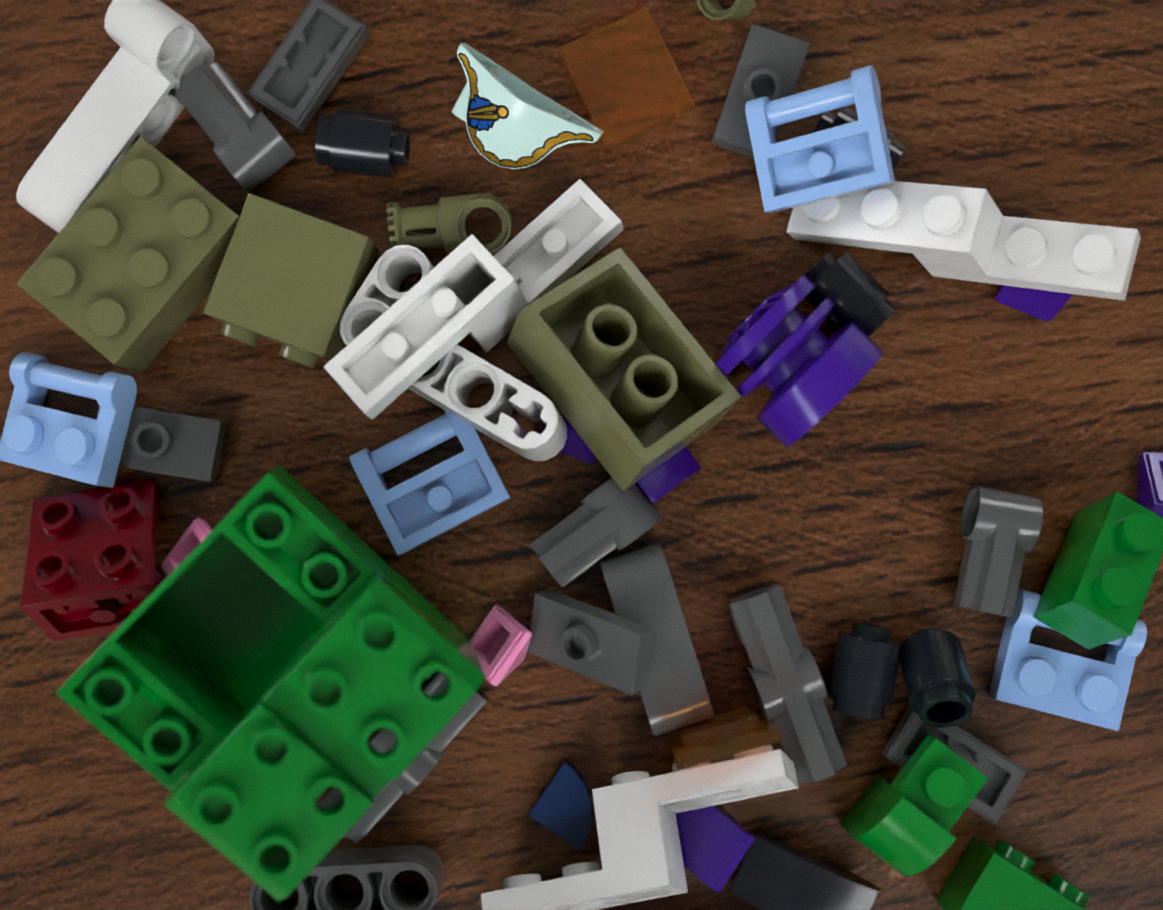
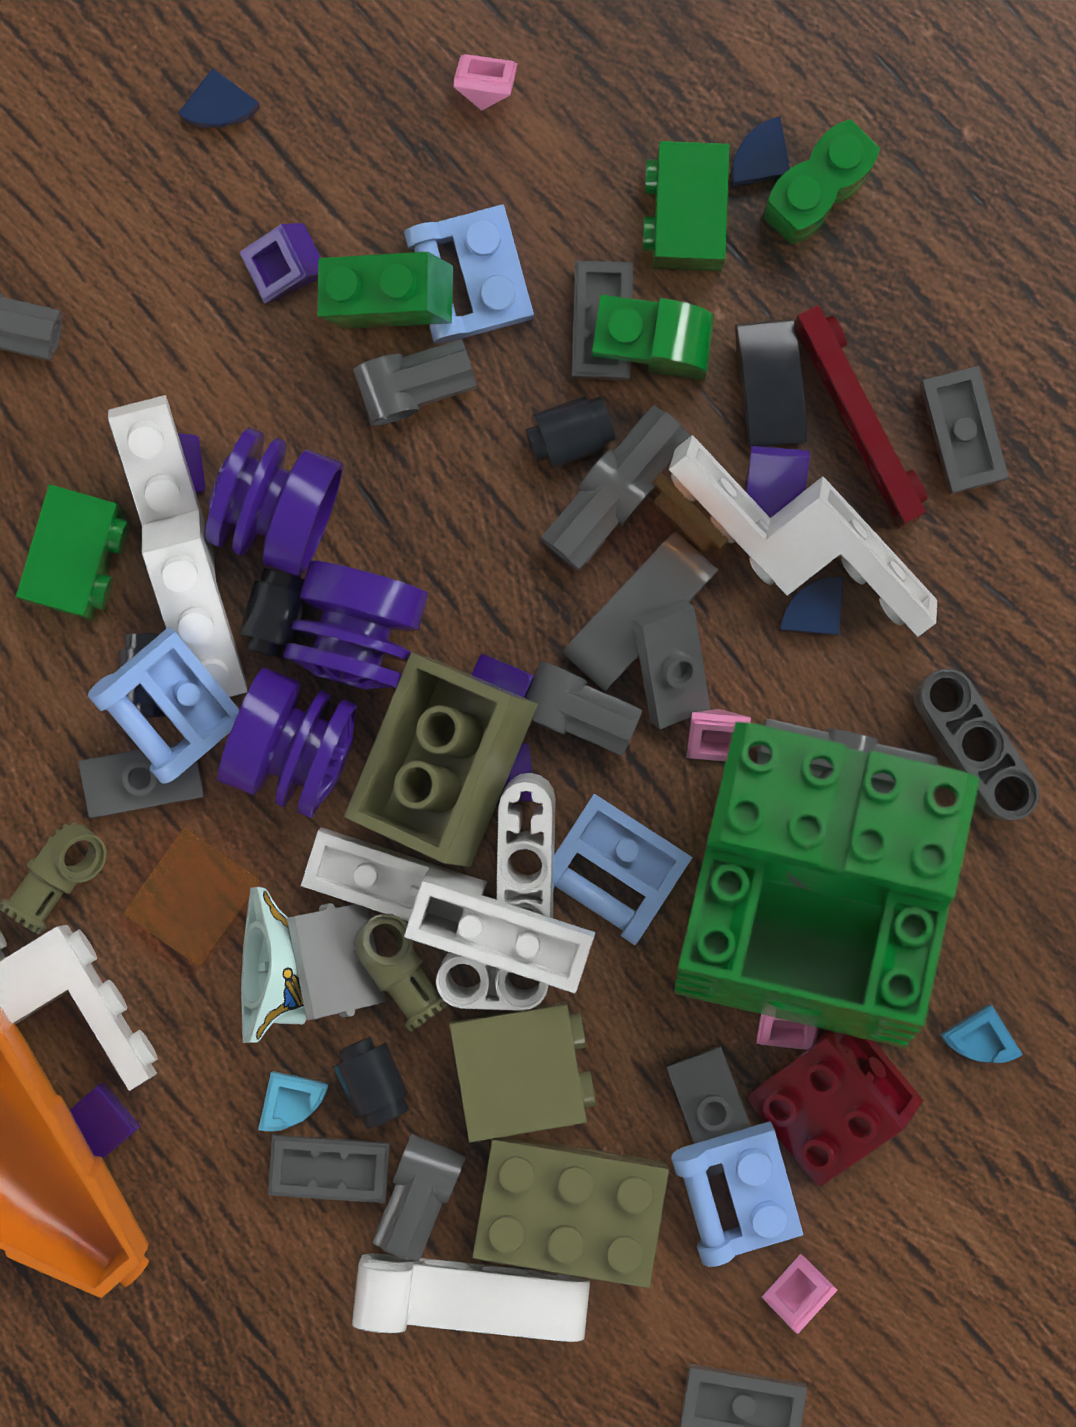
camera: 125 degrees left, 0 degrees up
(73, 738) = (982, 1038): none -> dark azure tile
(392, 65) = (290, 1100): none -> medium azure tile
(492, 159) = (326, 963): none -> light grey piece
(733, 225) = (287, 742): none -> dark purple wheel
(937, 677) = (543, 373): black brick -> none
(960, 348) = (273, 502): none -> dark purple wheel
(1009, 140) = (73, 553): none -> green brick

